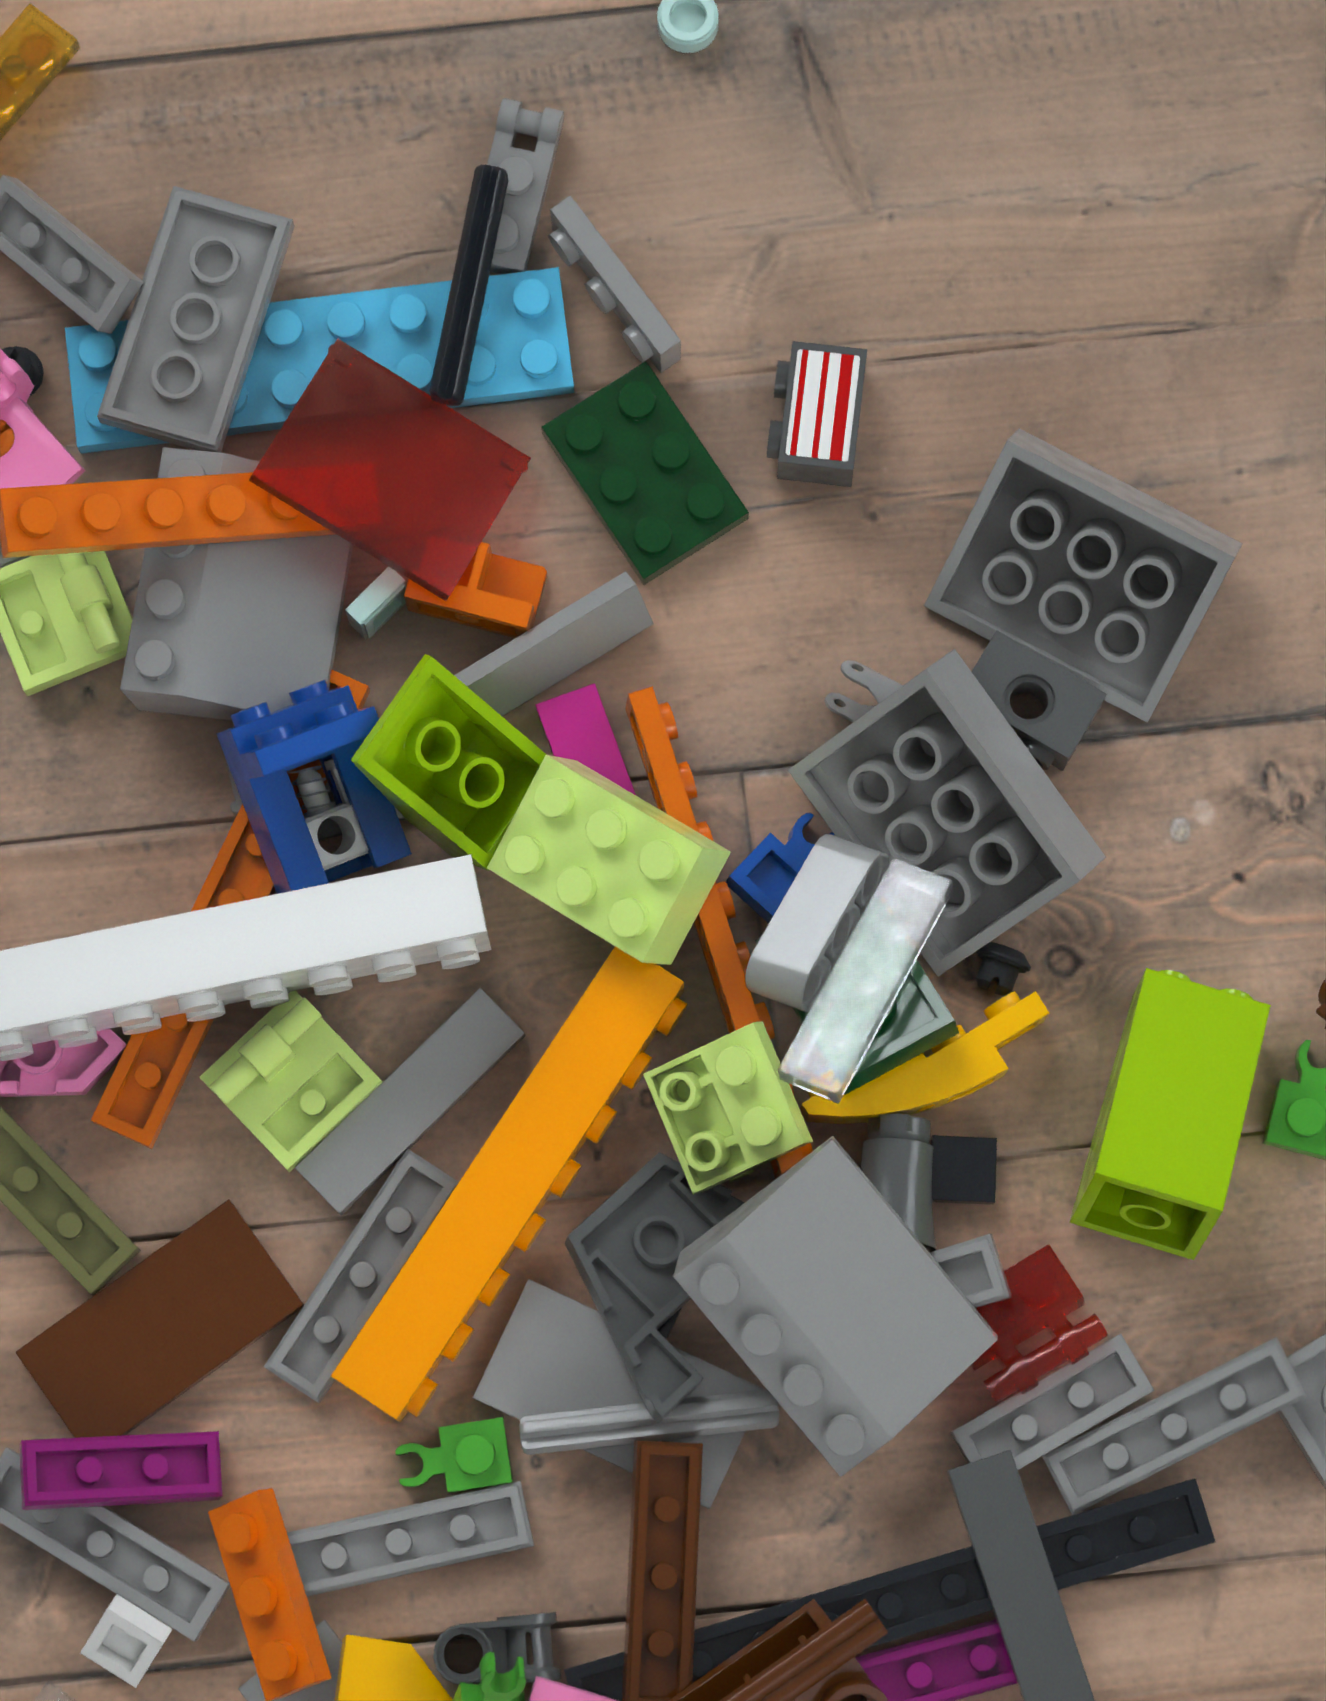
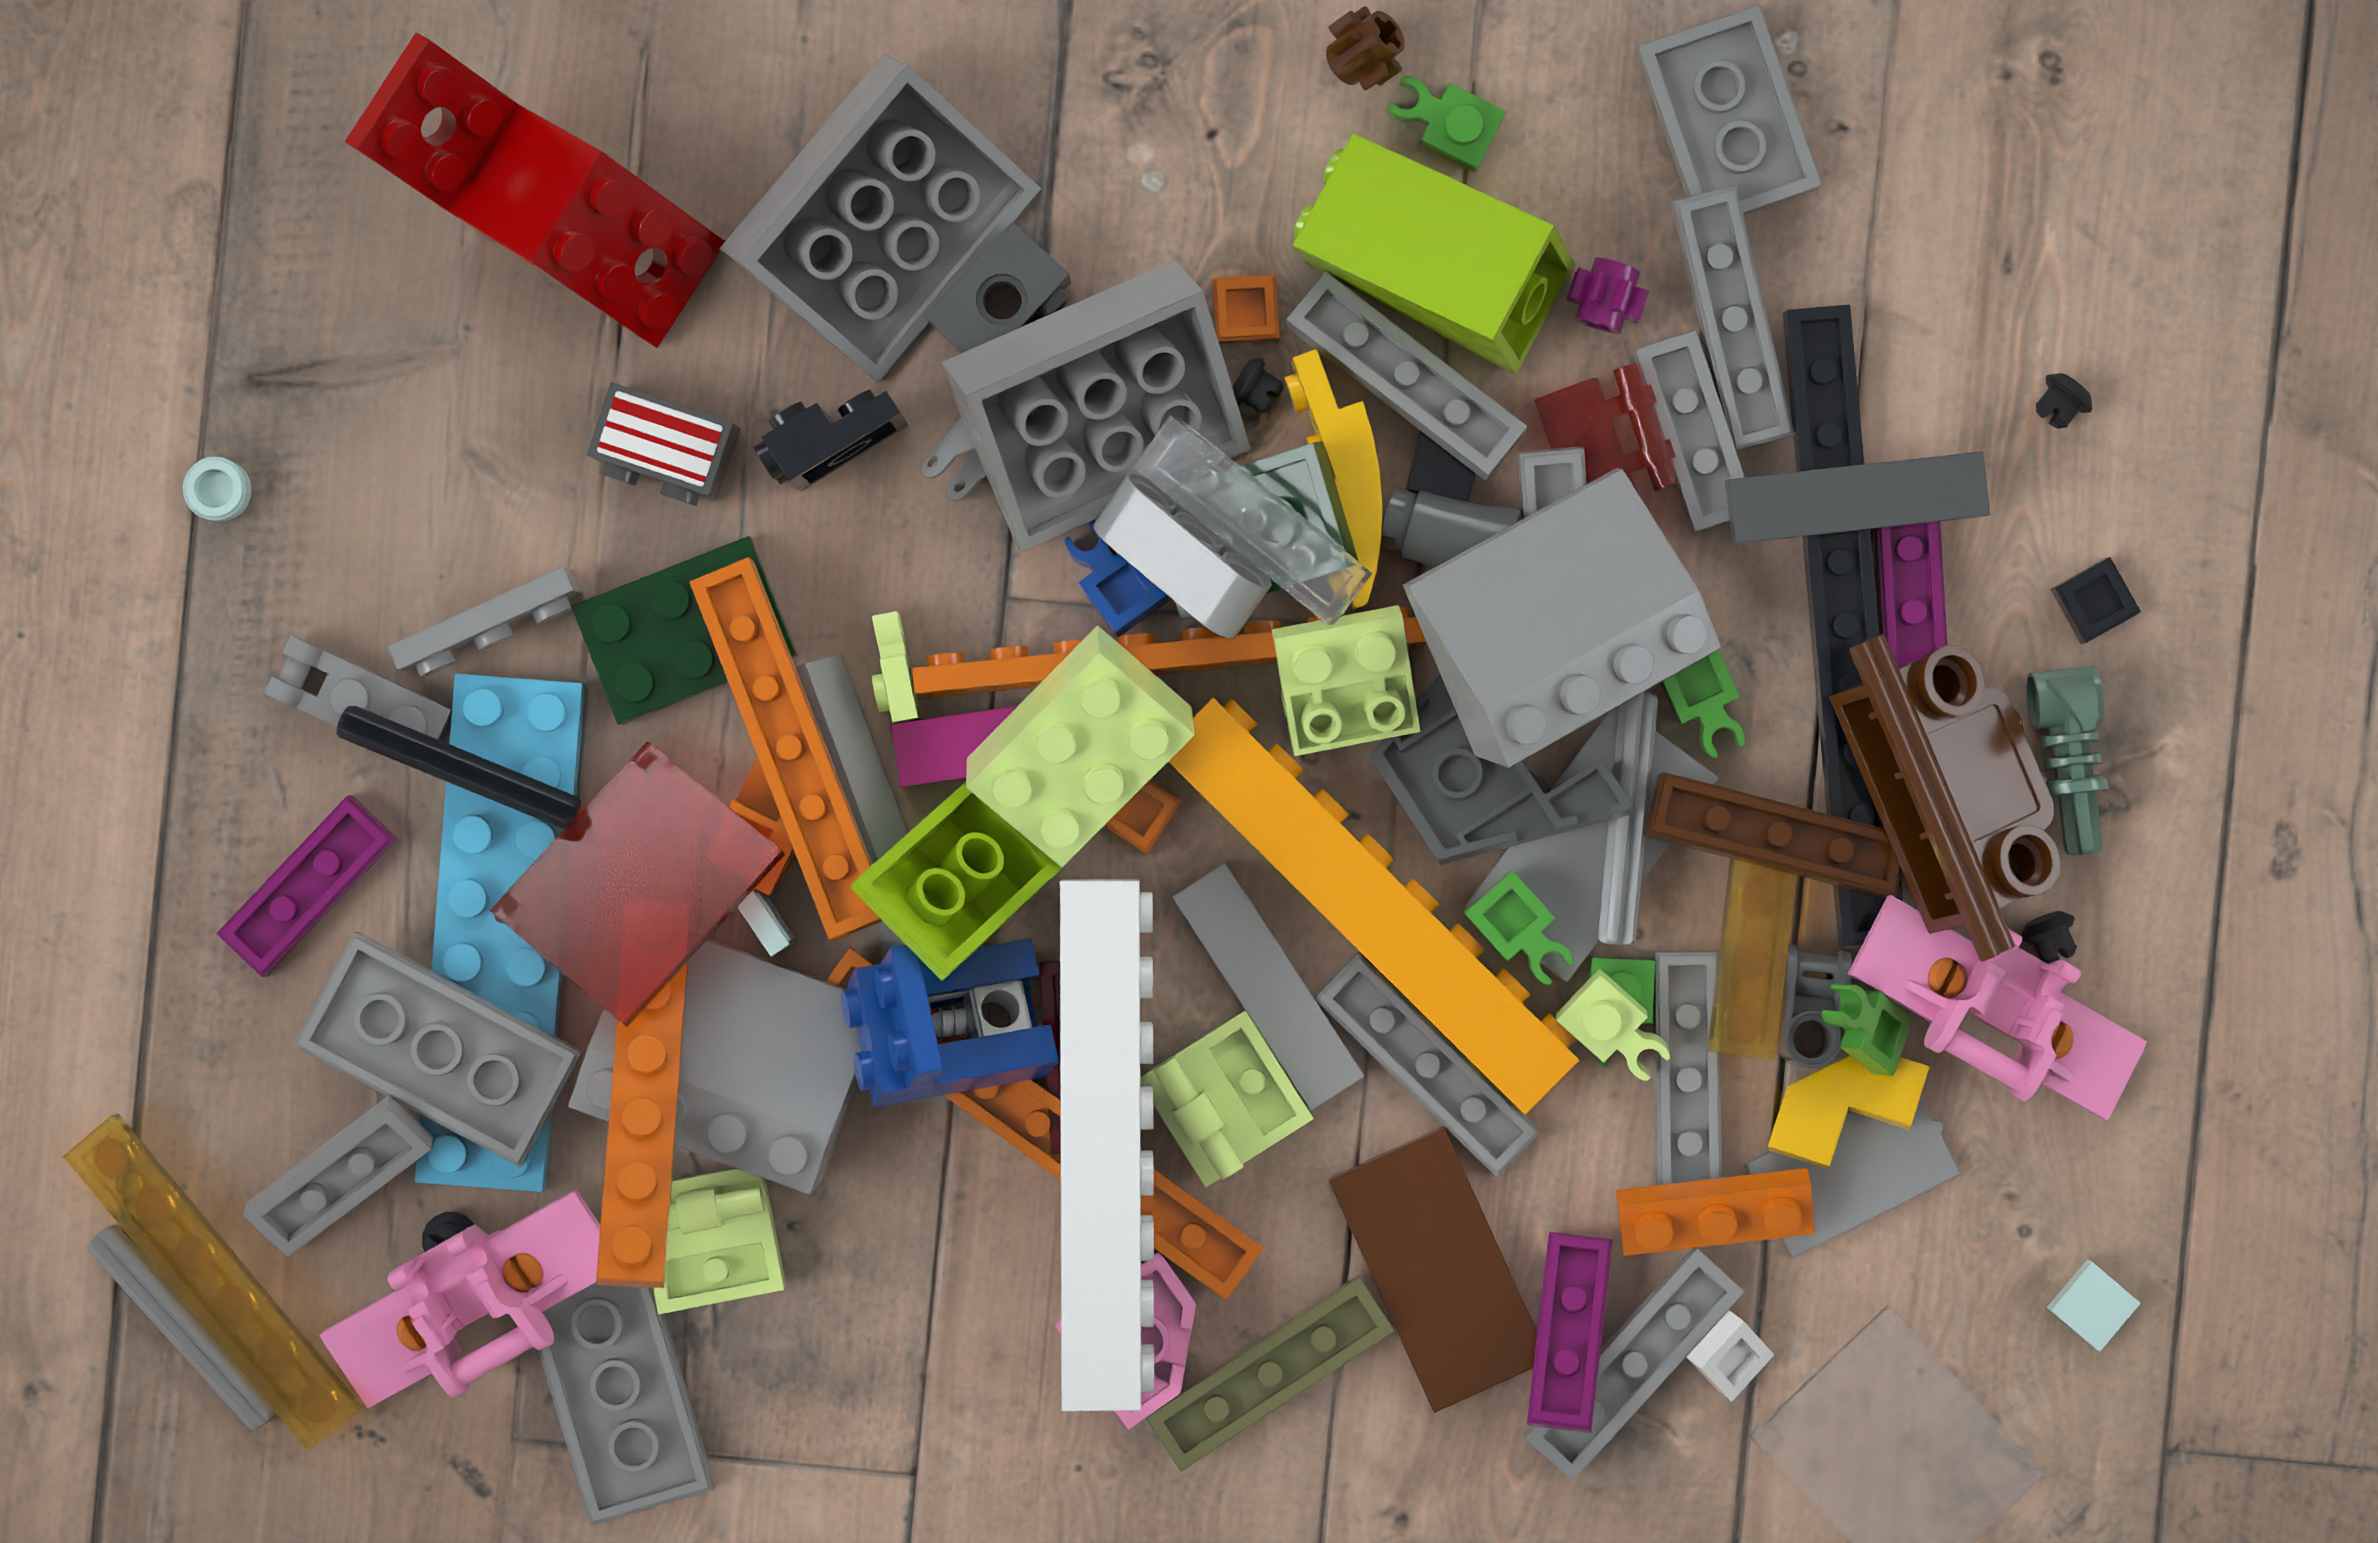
camera: 75 degrees left, 10 degrees up
(329, 175) = (307, 885): none -> magenta tile
(442, 1442) = (1608, 1021): none -> yellowish green plate
(524, 1326) = (1513, 921): none -> bright green plate
(530, 1579) = (1751, 961): none -> clear yellow plate
(556, 943) = (1144, 816): none -> orange tile
(557, 578) = (787, 743): none -> orange plate
(632, 674) = (895, 685): none -> yellowish green plate
(793, 1472) = (1700, 693): none -> bright green plate
(848, 550) = (810, 446): none -> black plate
(1032, 242) = (535, 190): none -> red bracket
(1043, 1110) = (1405, 376): none -> light grey plate
(1074, 943) = (1246, 309): none -> orange tile
(1168, 1294) = (1607, 295): none -> magenta gear

